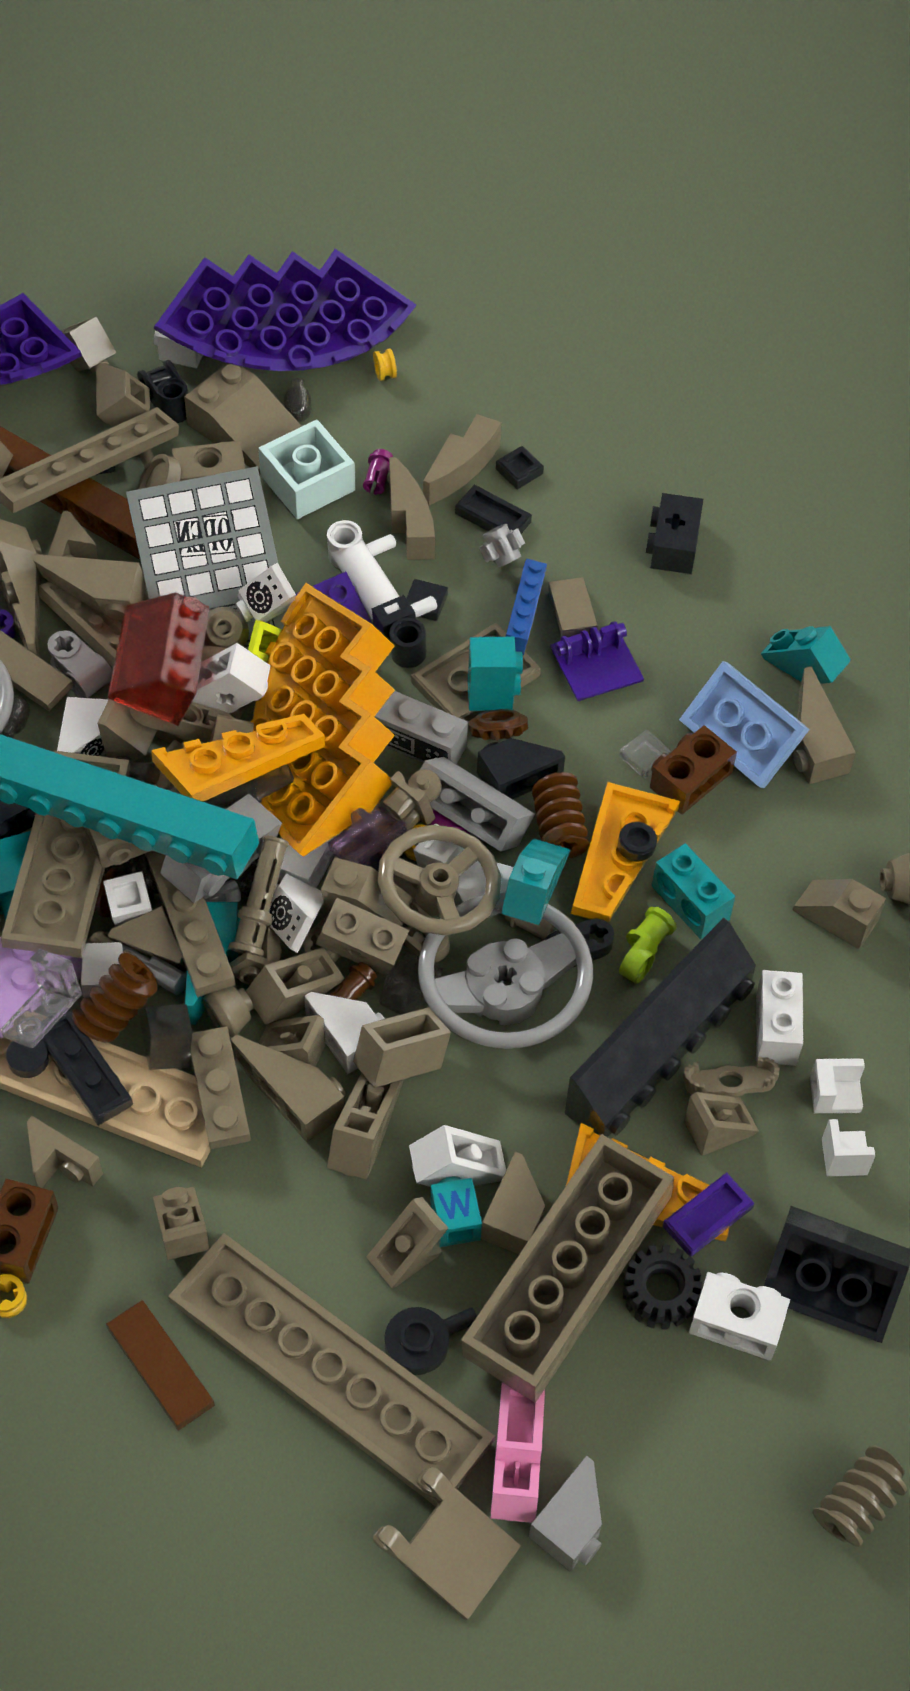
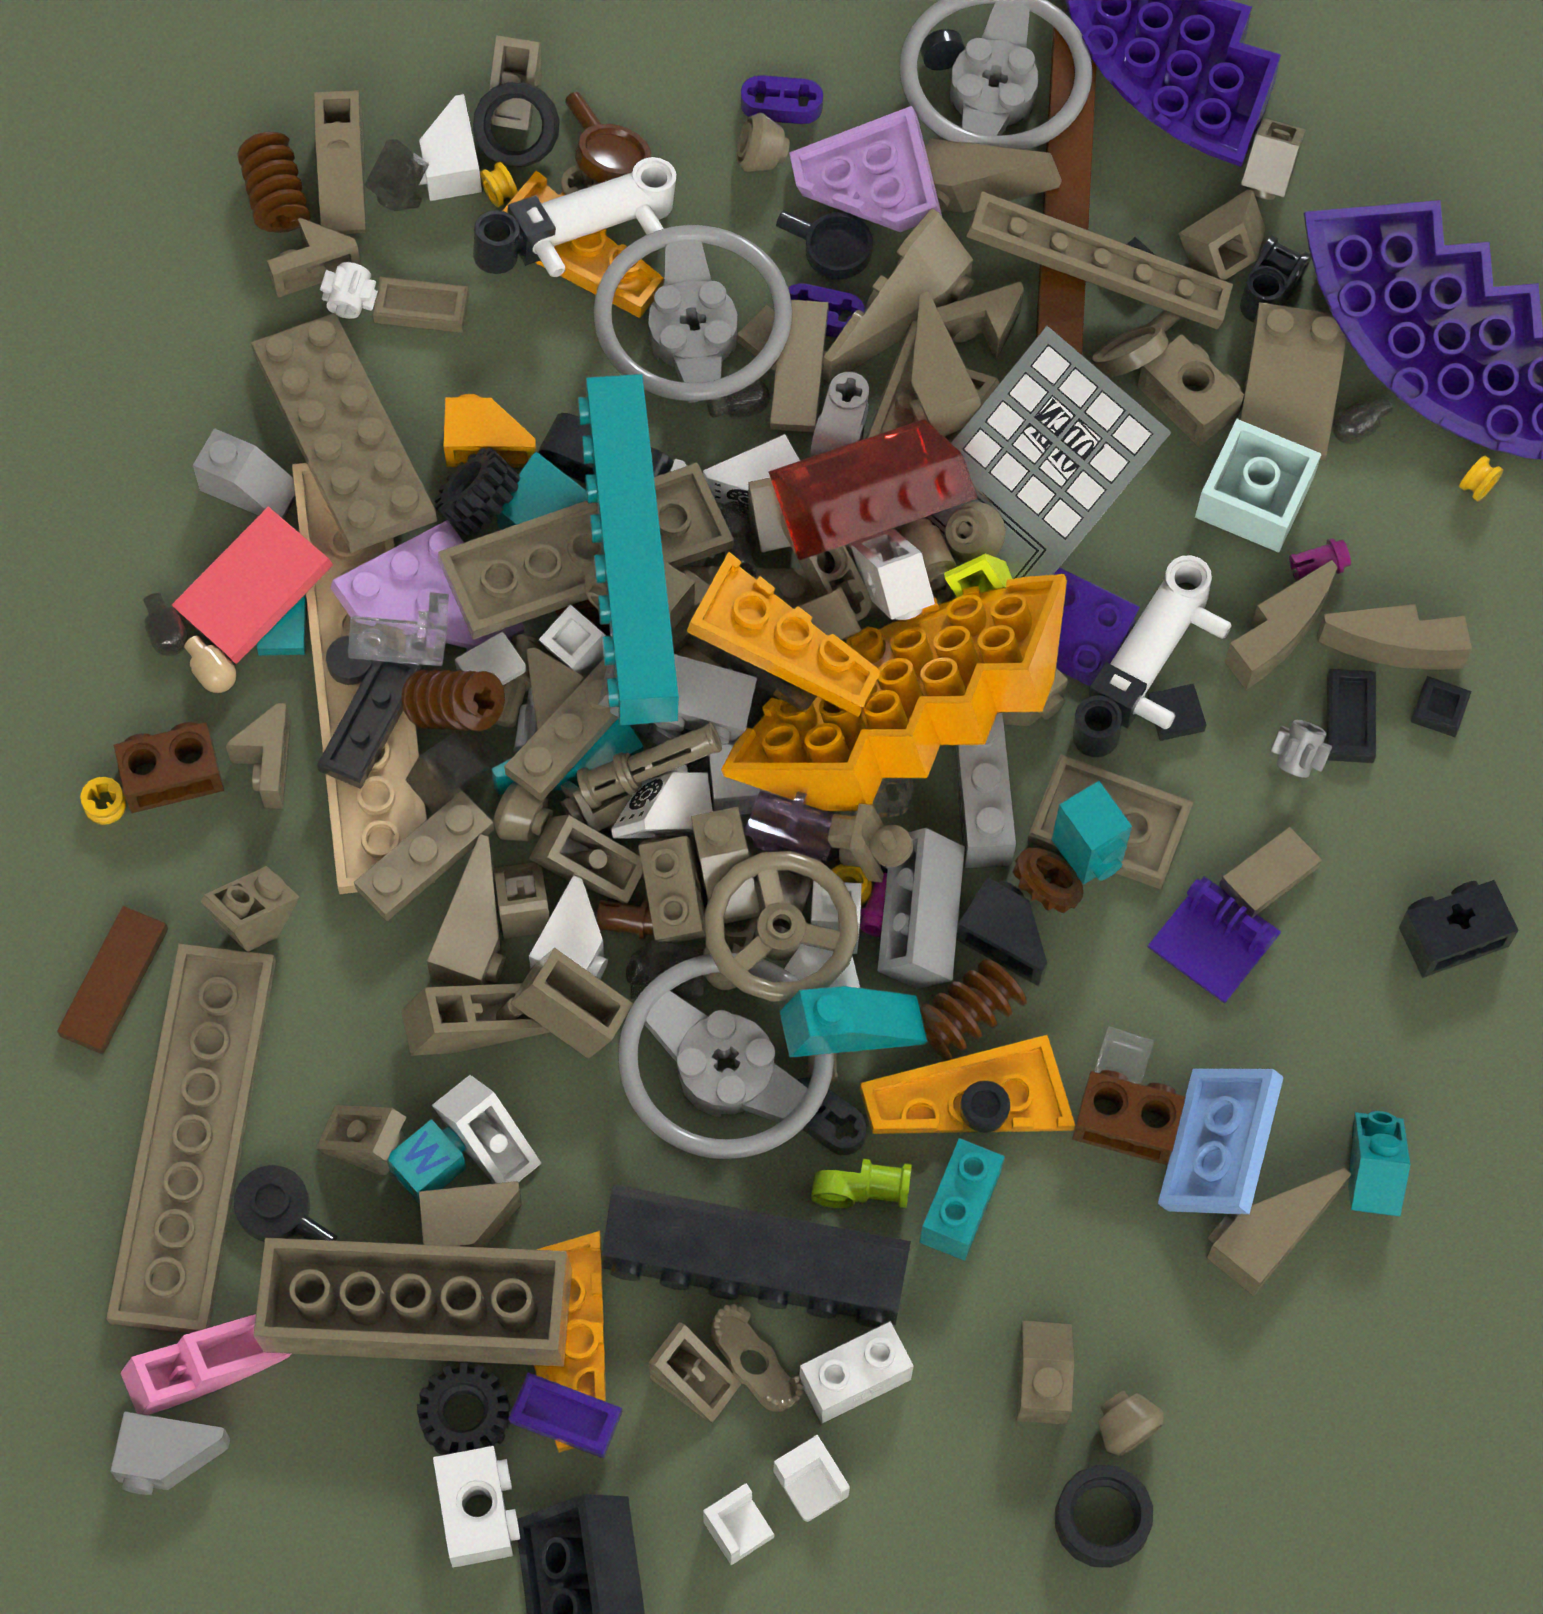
camera: 60 degrees right, 10 degrees up
(265, 596) = (1030, 547): white slope -> none
(455, 1549) = (72, 1357): dark tan flag -> none
(526, 603) = (1232, 819): blue piece -> none

